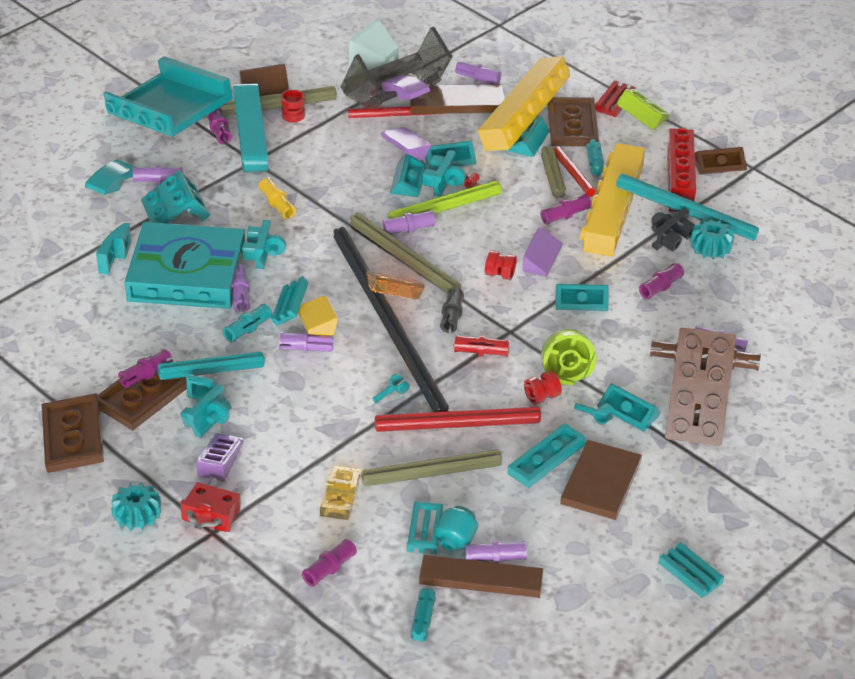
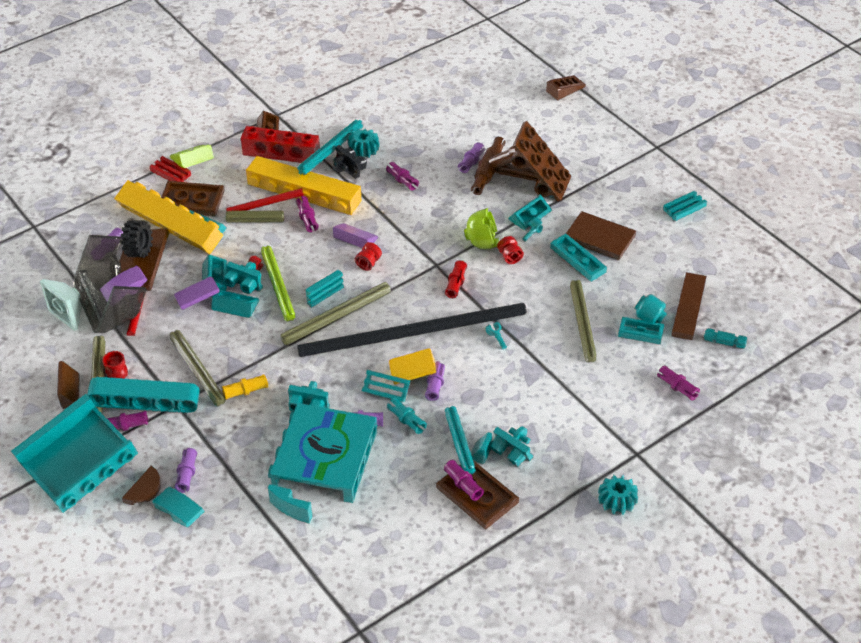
camera: 80 degrees left, 5 degrees up
(72, 433) = (526, 539): reddish brown tile -> none
(138, 154) = (144, 488): none -> reddish brown tile
(173, 198) = (232, 460): teal bracket -> none
(211, 505) = (618, 447): red piece -> none
(218, 466) = (568, 437): medium lavender slope -> none
(307, 161) = (197, 368): none -> olive axle
(340, 493) = (601, 373): clear yellow slope -> none
(394, 285) = (379, 318): clear orange slope -> none
(409, 222) = (300, 304): medium lavender pin -> none
(438, 236) = (324, 288): none -> teal tile
(452, 310) = (413, 290): pearl dark grey pin -> none
(457, 419) = (533, 302): red axle -> none
(466, 89) = (136, 238): none -> black tyre
(496, 551) = (670, 293): medium lavender pin -> none
(582, 297) = (408, 221): teal slope -> none
(595, 158) = (245, 190): teal axle -> none

